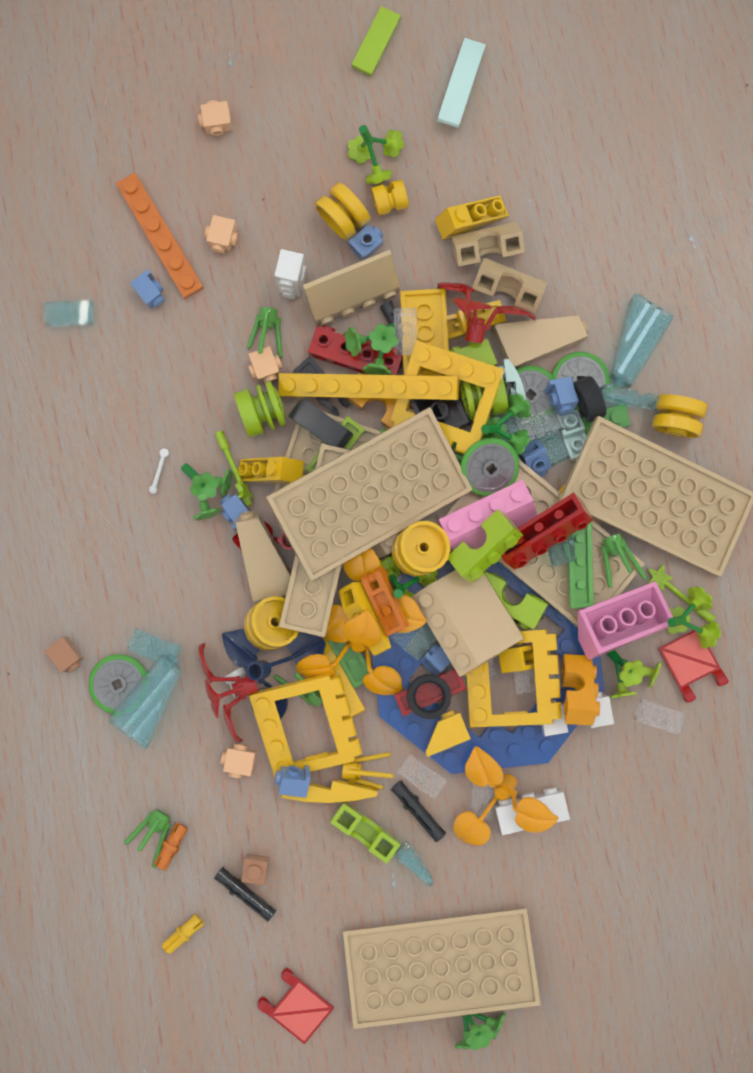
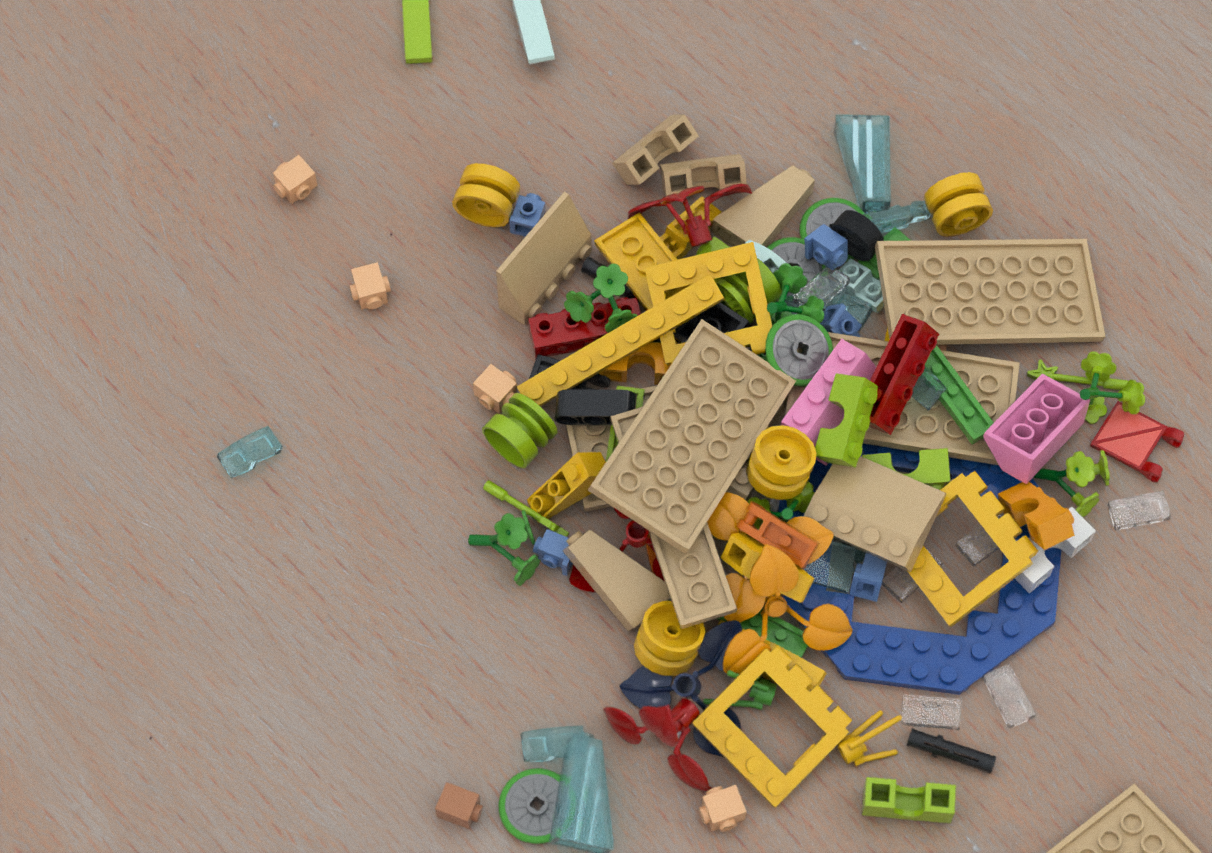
camera: 30 degrees left, 20 degrees down
(148, 289) = (324, 382): medium blue brick -> none
(159, 235) = (302, 325): orange plate -> none
(164, 454) = (440, 539): white hinge -> none
(266, 319) = (471, 345): bright green plant -> none
(290, 274) = (471, 278): white arch -> none
(293, 781) = (796, 787): medium blue brick -> none
(339, 792) = (849, 781): yellow slope -> none
(362, 150) = (495, 111): lime plant -> none
(389, 197) = (530, 155): yellow wheel -> none
(406, 330) = (636, 275): clear plate -> none
(409, 857) = (981, 806): clear light blue slope -> none
(429, 714) = (891, 593): black tyre -> none
(430, 692) = (883, 615): red tile -> none
(447, 733) = (929, 642): yellow slope -> none
(470, 216) = (619, 135): yellow slope -> none
(484, 770) = (1071, 662): light orange plant -> none
(517, 659) = (953, 525): yellow slope -> none
(551, 797) = (1087, 661): white arch -> none
(616, 545) = (978, 358): bright green plant -> none

